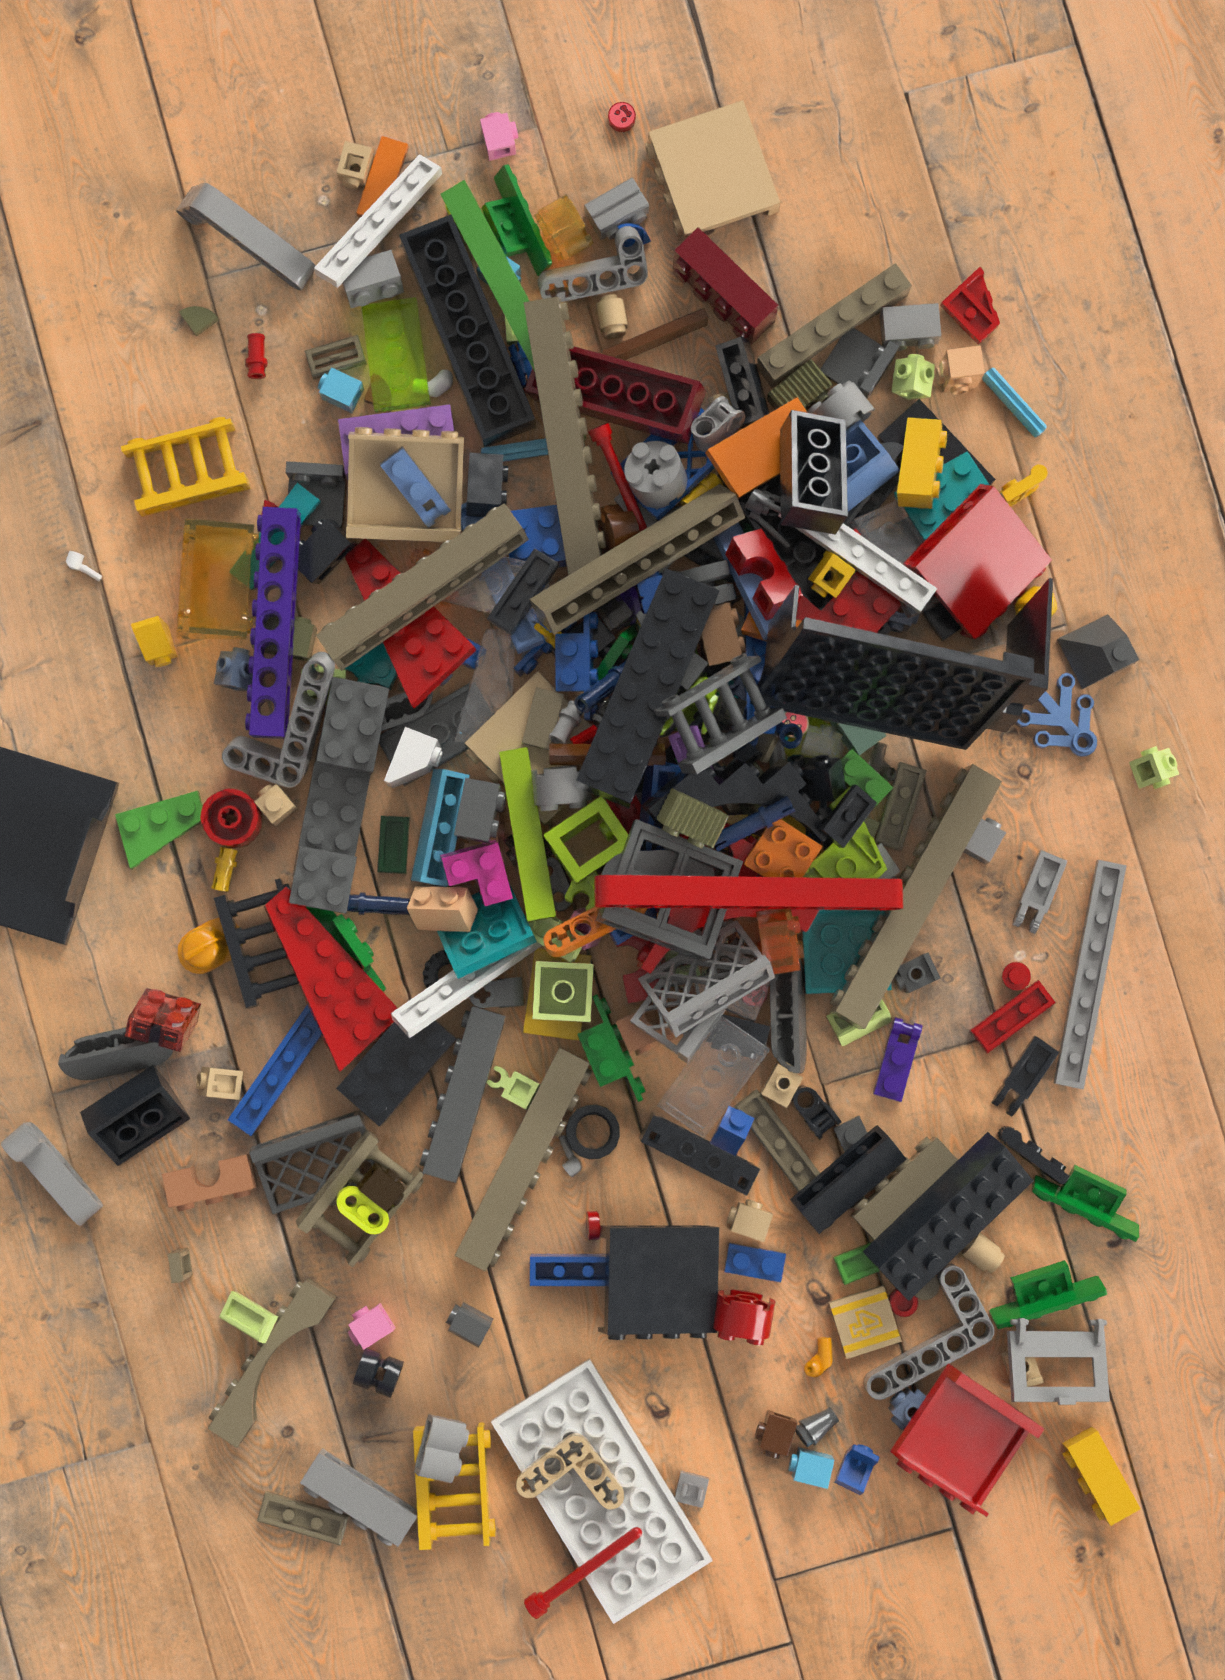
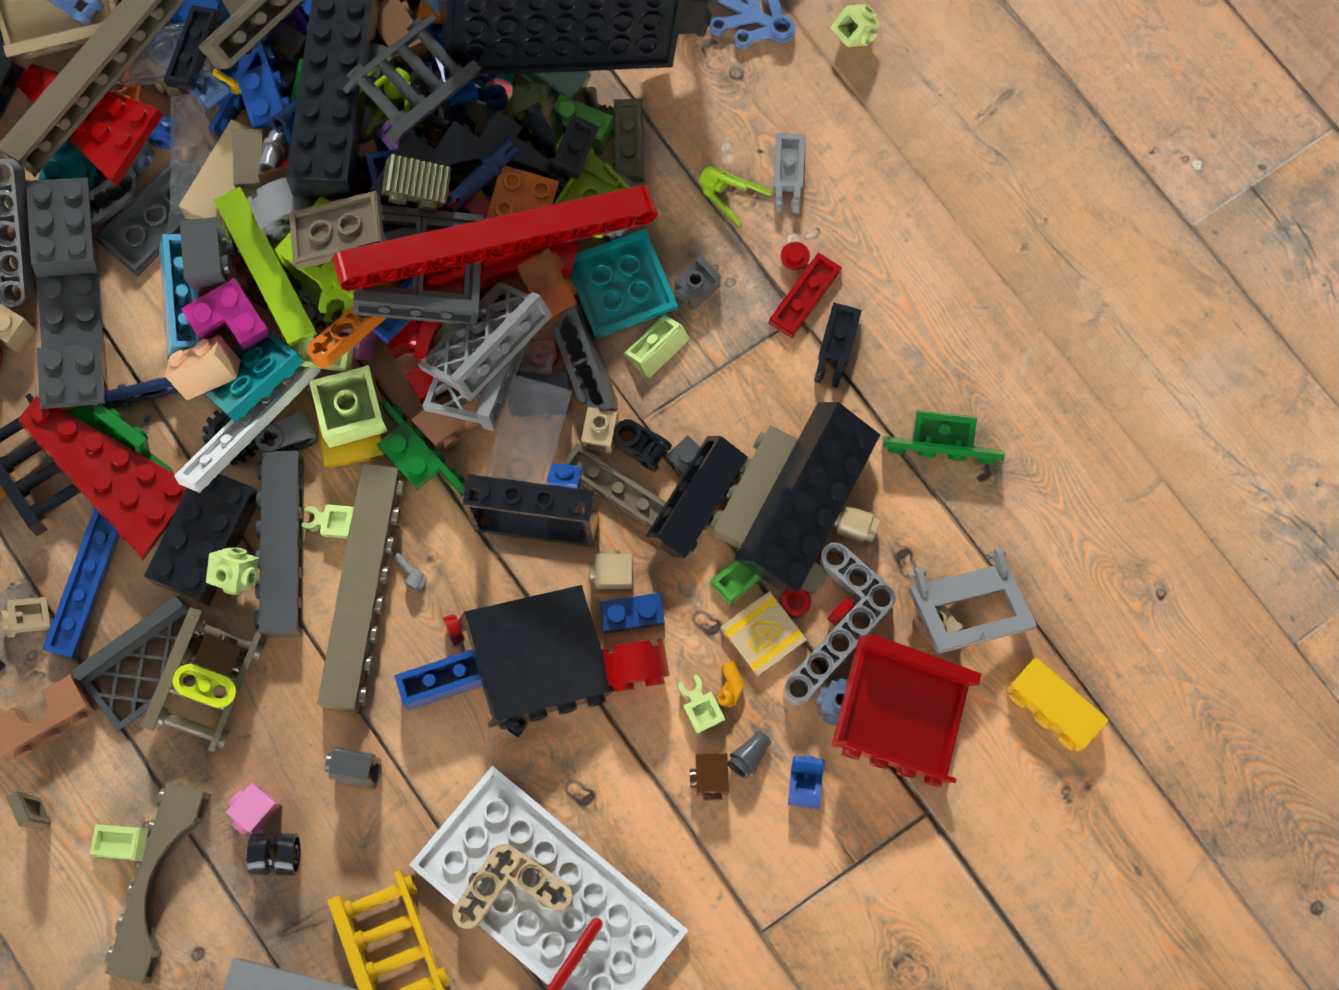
camera: 15 degrees left, 10 degrees down
(393, 844) = (141, 332): dark green tile -> none
(413, 758) = (130, 236): white slope -> none
(416, 1111) = (232, 570): none -> yellowish green brick
(441, 1448) = (361, 905): light grey brick -> none
(602, 1151) = (414, 517): black tyre -> none
(606, 840) = (335, 227): none -> dark tan tile
(691, 1489) = (643, 865): light grey tile -> none
(788, 1372) = (701, 709): none -> yellowish green plate
(811, 1467) = (759, 797): medium azure brick -> none
(897, 1060) = (707, 372): dark purple plate -> none
(921, 888) = (672, 199): dark tan brick -> none
(941, 1327) = (841, 611): none -> red tile
(969, 876) = (716, 181): none -> lime plant
(985, 840) = (718, 142): light grey brick -> none
(1032, 1154) = (892, 421): black hinge -> none
(1046, 1292) = (932, 540): green bracket -> none
(1090, 974) = (865, 232): light grey plate -> none

